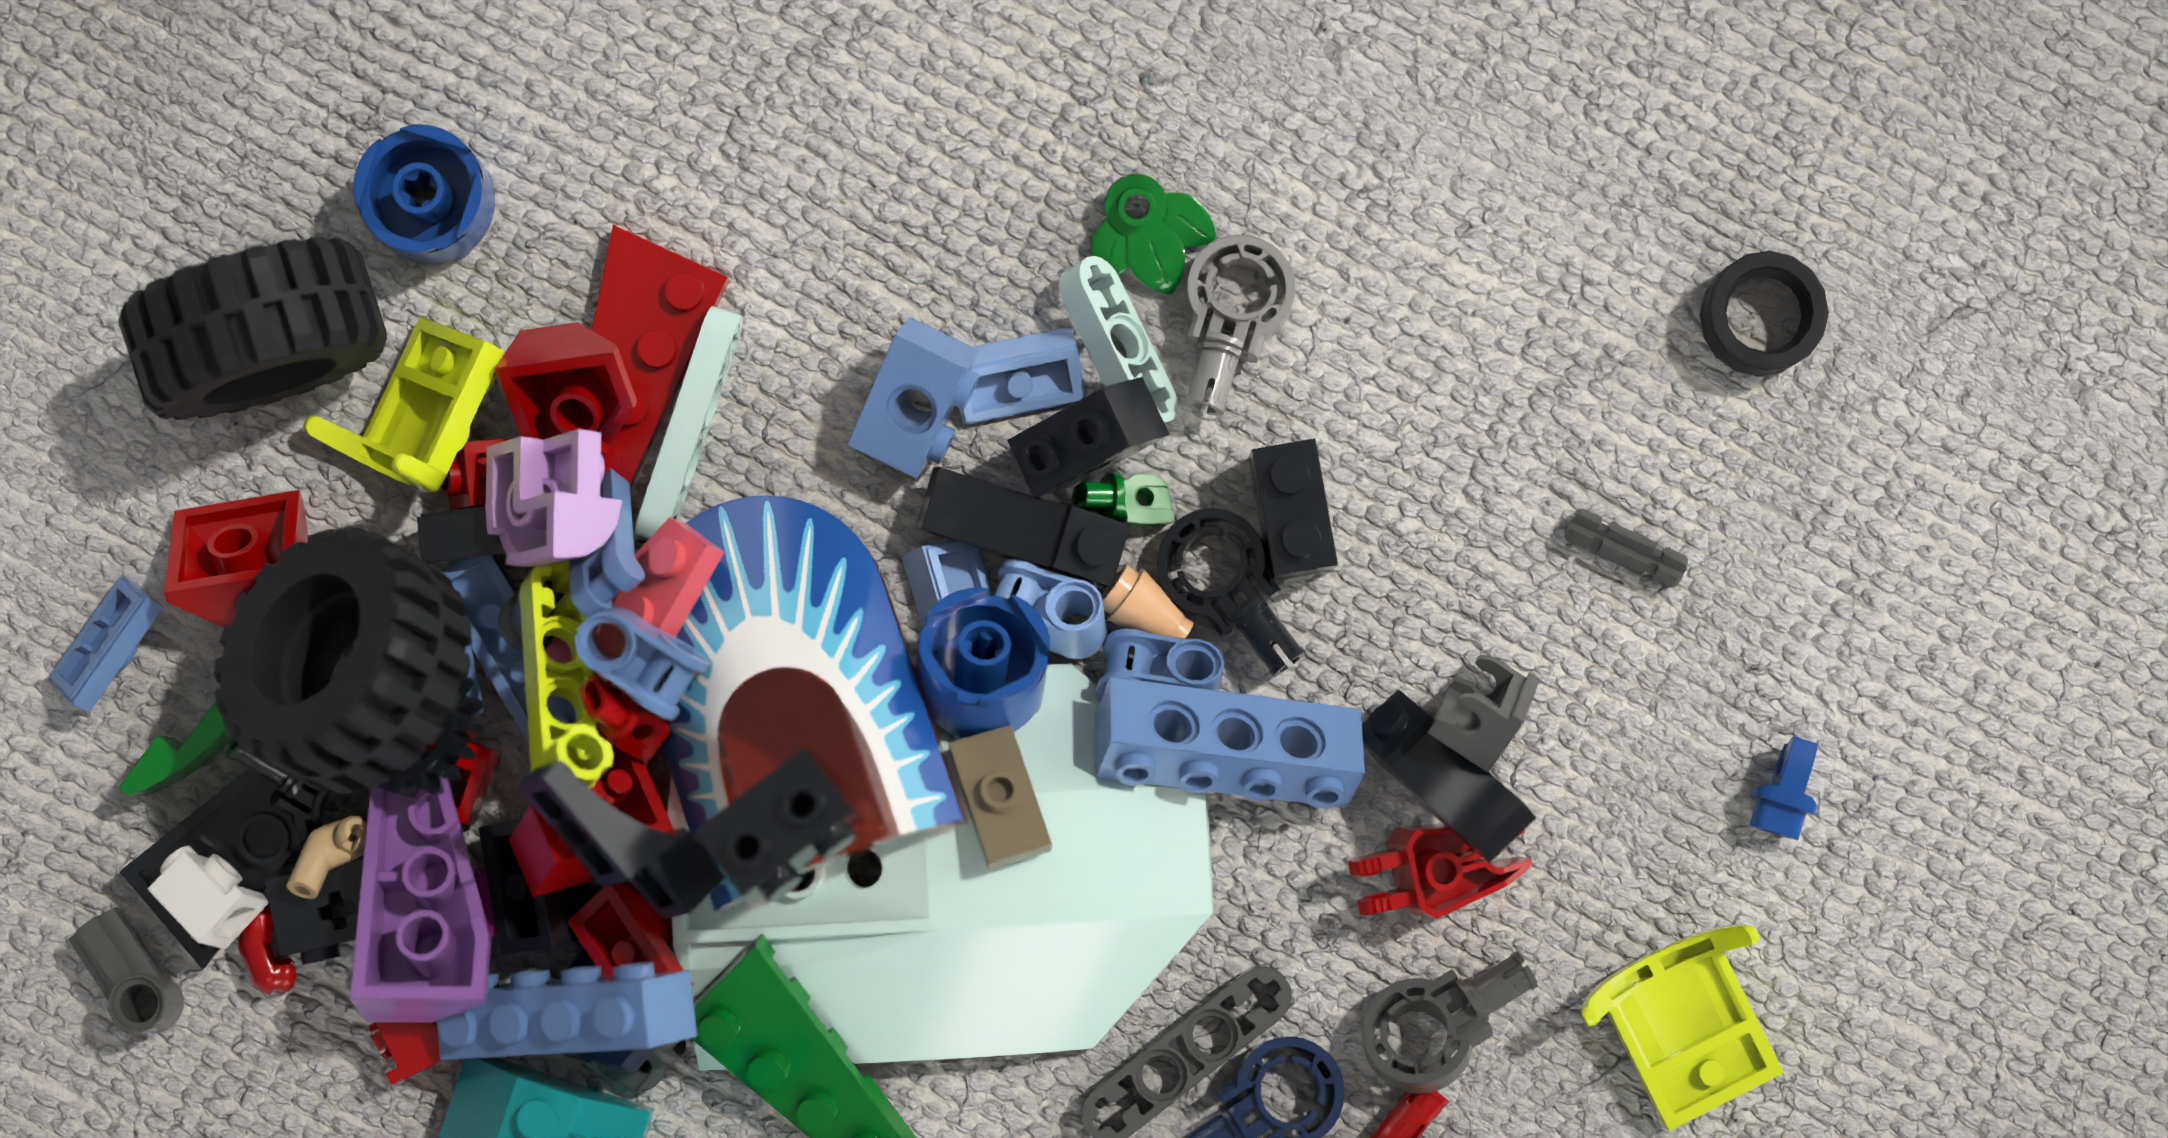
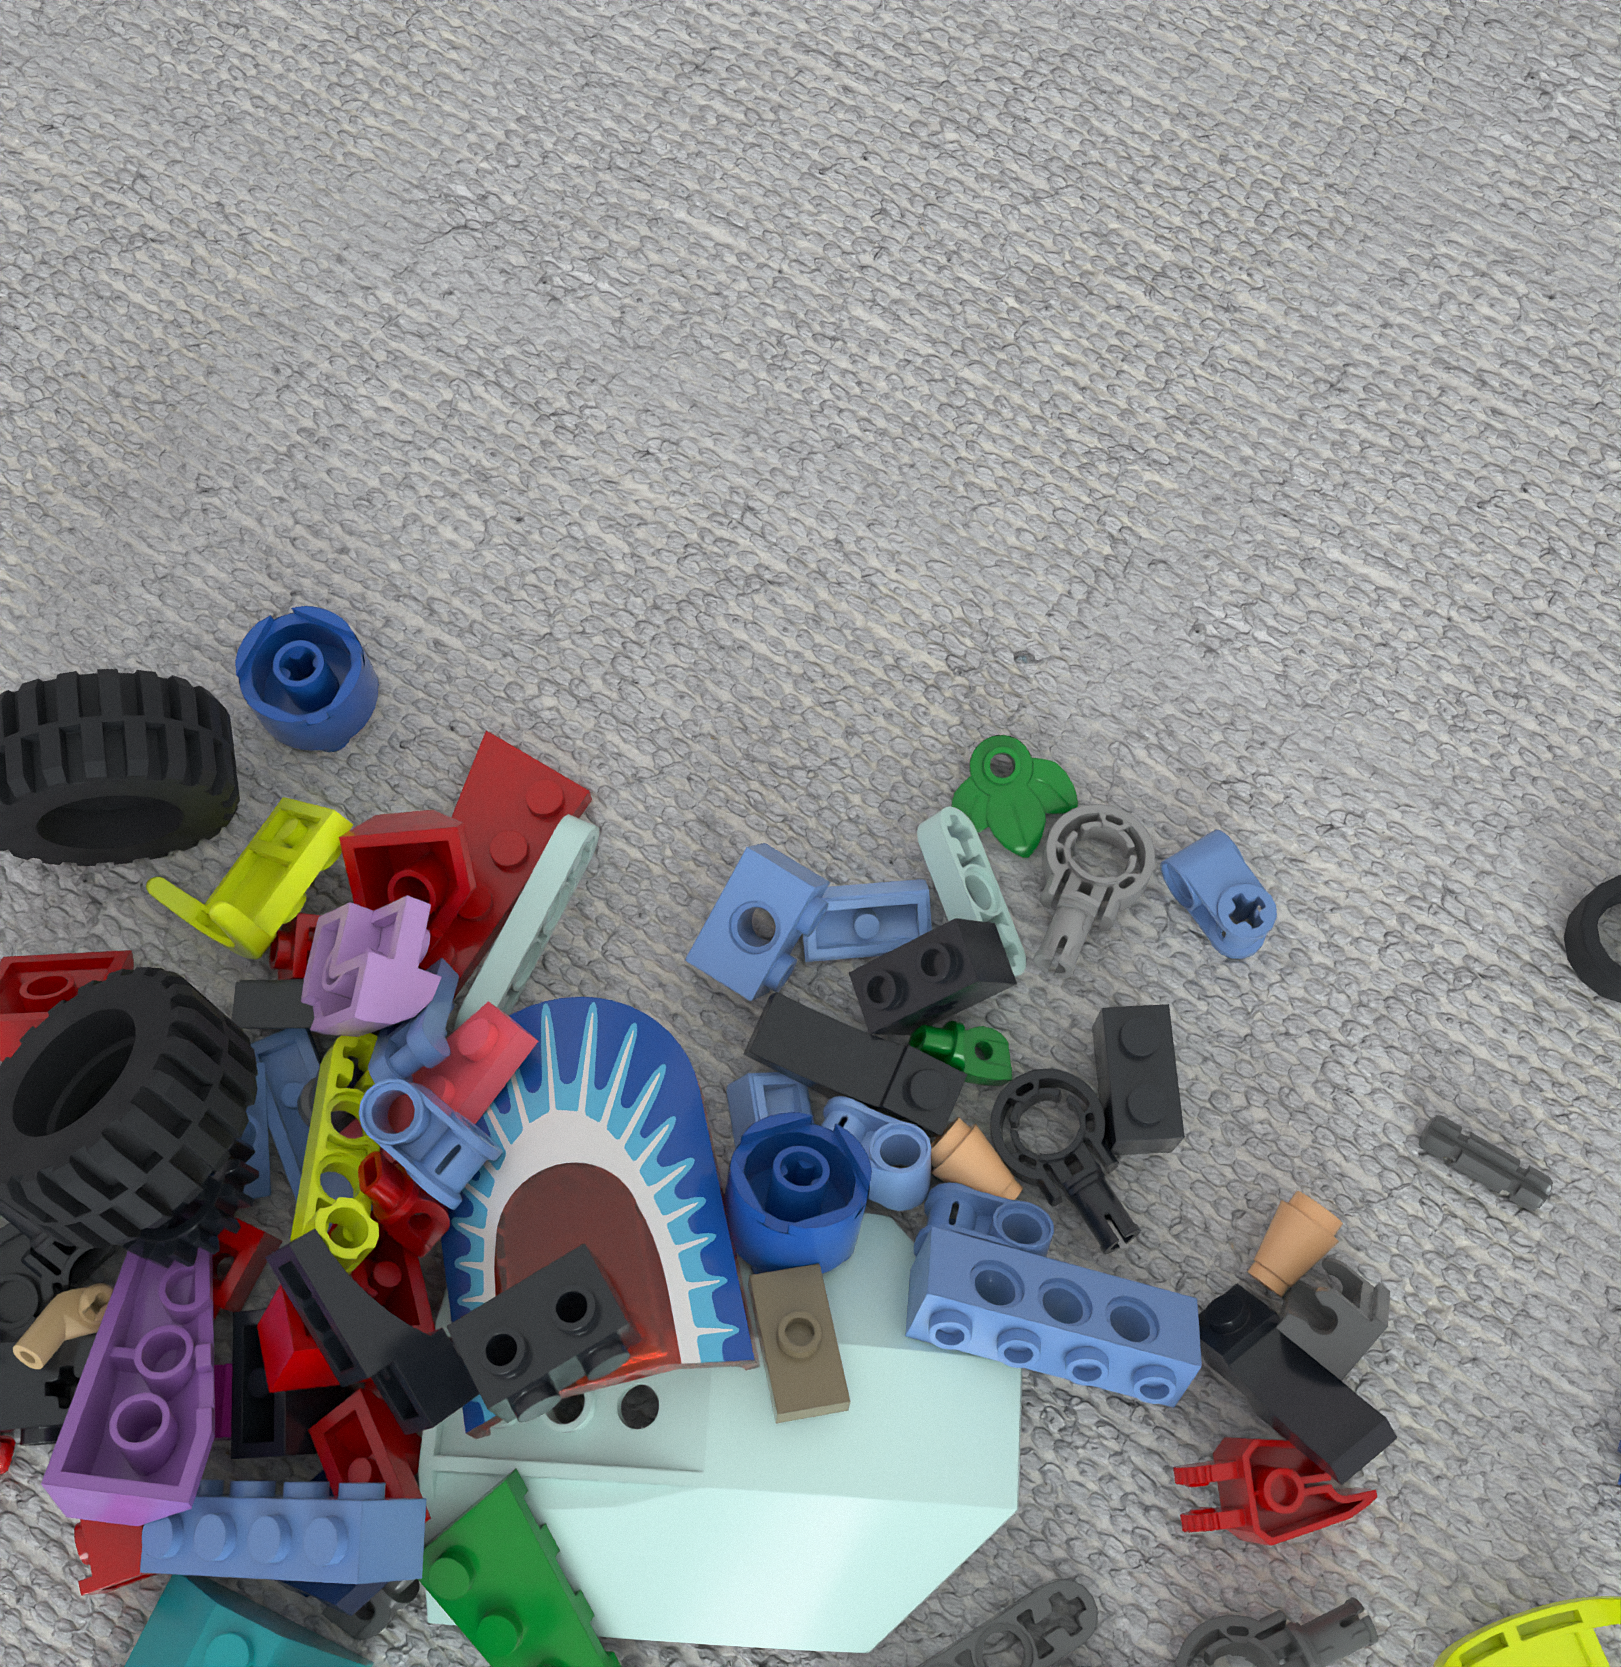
camera: 10 degrees right, 15 degrees down
(1355, 303) = (1217, 884): none -> medium blue piece
(1449, 645) = (1294, 1243): none -> light nougat cone

